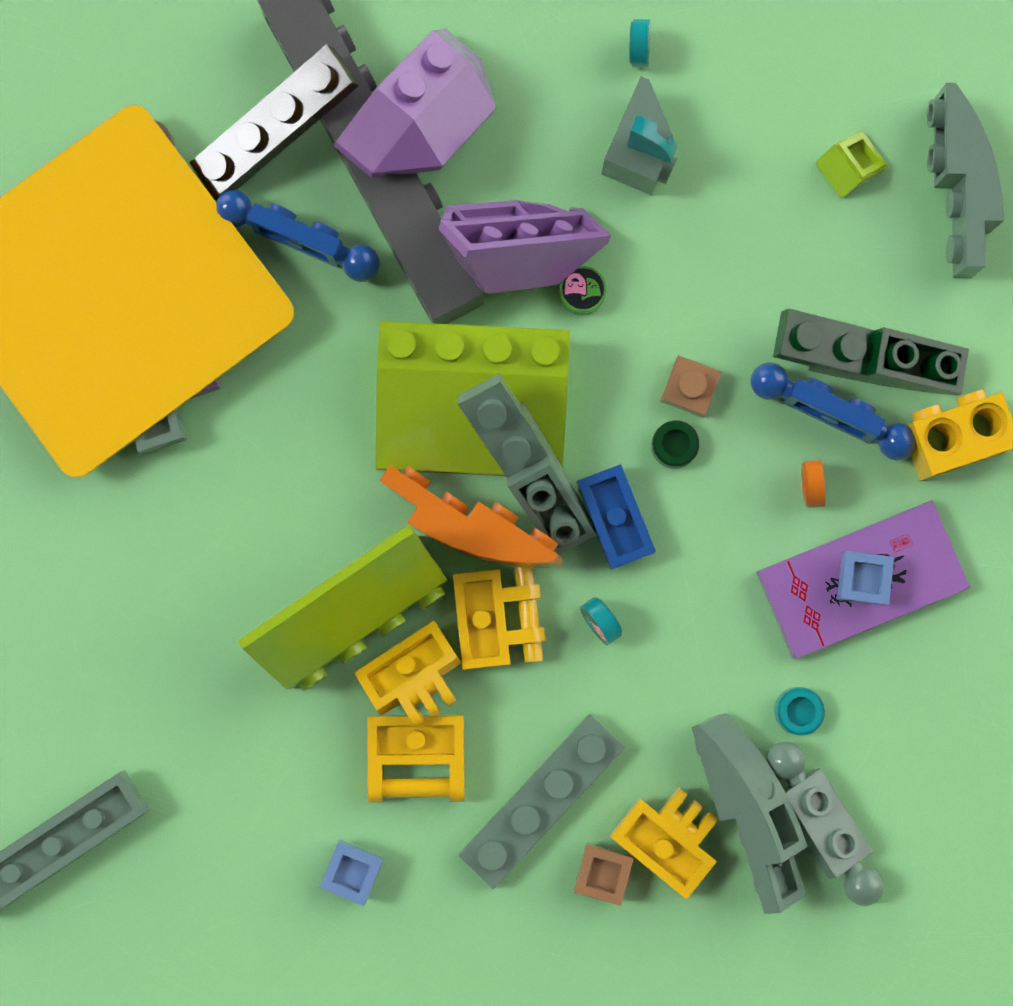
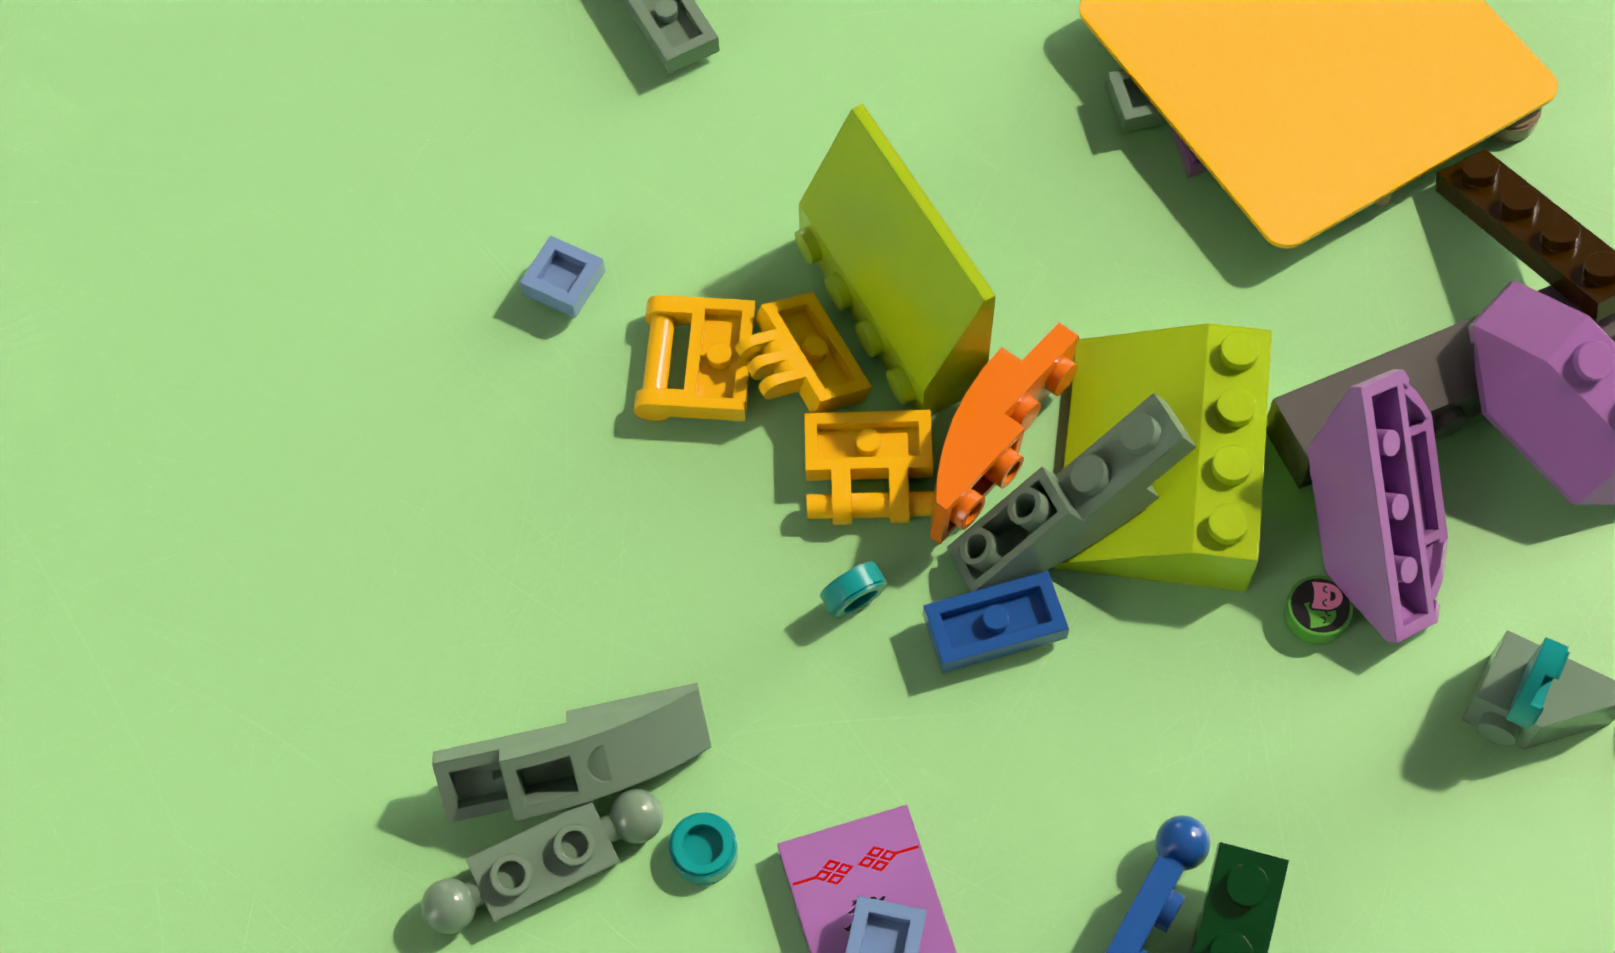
camera: 95 degrees right, 20 degrees down
(317, 241) = (1355, 328): blue plate -> none
(541, 801) = (624, 507): sand green plate -> none
(603, 874) = (516, 567): medium nougat plate -> none
(668, 841) = (547, 651): yellow hinge -> none
(675, 444) = (1094, 714): dark green tile -> none
(690, 386) = (1177, 742): medium nougat plate -> none
(813, 483) = (1028, 891): orange tile -> none

